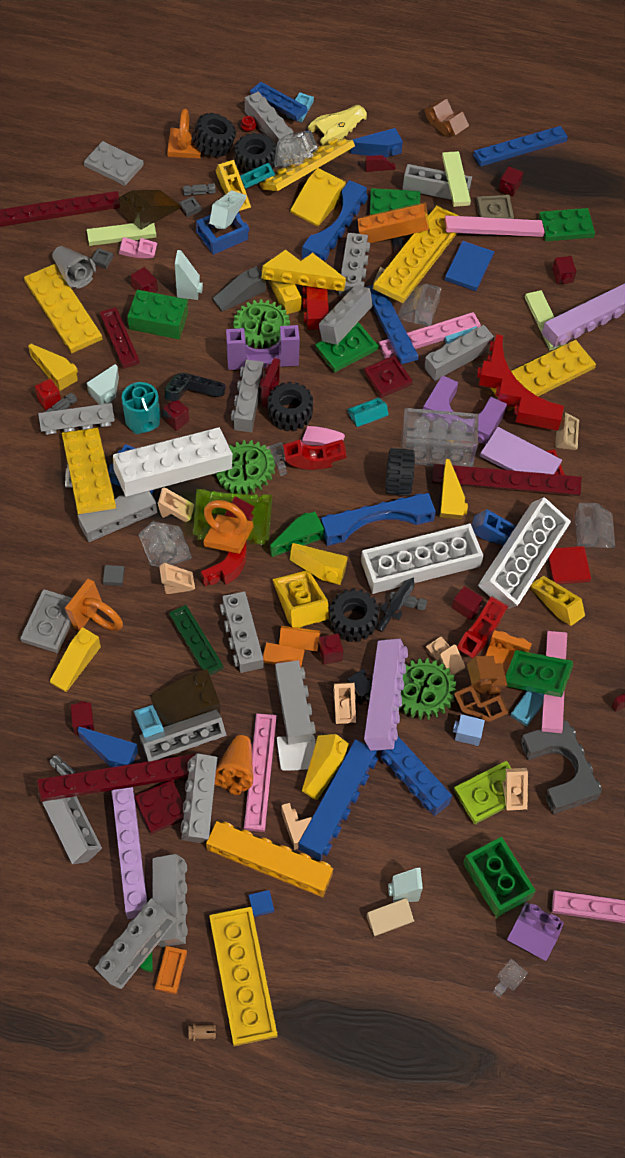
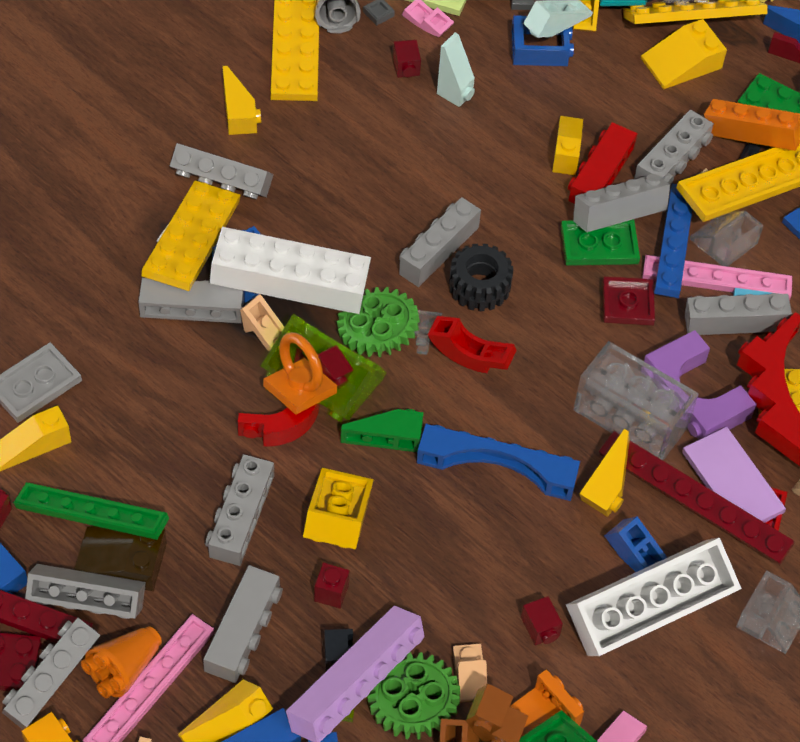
camera: 30 degrees right, 5 degrees down
(47, 394) = (209, 131): red brick -> none
(64, 403) = (222, 150): dark grey axle -> none
(84, 606) = (82, 383): orange tile -> none
(104, 386) = (282, 151): light aqua slope -> none
(113, 575) = (141, 368): dark grey tile -> none
(119, 337) = (335, 107): dark red plate -> none
(141, 407) = (300, 193): teal cylinder -> none
(148, 721) = (59, 553): medium azure tile -> none
(151, 683) = (91, 510): none -> green tile
(158, 314) = (397, 100): green brick -> none
(164, 544) = (222, 362): clear slope -> none
(176, 414) = (338, 222): dark red brick -> none
(176, 579) = (207, 407): light nougat slope -> none
(183, 381) = (377, 190): black beam -> none
(196, 640) = (181, 491): dark green plate -> none
(241, 289) = (521, 116): dark grey slope -> none
(251, 319) = (513, 168): bright green gear -> none
(270, 381) = (478, 231): dark red plate -> none
(279, 654) = (268, 558): orange tile -> none
(286, 349) = (514, 213): medium lavender arch -> none
(296, 755) = (201, 688): white sticker -> none
(299, 638) = (302, 552): orange tile -> none
(307, 272) = (605, 131): yellow slope -> none
(320, 563) = (390, 478): yellow slope -> none
(321, 243) = (649, 109): blue arch -> none
(321, 436) = (495, 329): bright pink slope -> none
(344, 703) = (302, 658): light nougat slope -> none
(353, 628) = (392, 541): black tyre -> none
(368, 412) = (576, 331): teal slope -> none
(396, 604) = (449, 574): black sword -> none
(400, 471) = (559, 417): black tyre -> none
(412, 601) = (469, 579): dark grey axle -> none
(421, 558) = (518, 536): white brick -> none
(482, 630) = (521, 669): red arch -> none
(559, 600) = (663, 680): yellow slope -> none
(569, 565) = (708, 644): red tile -> none

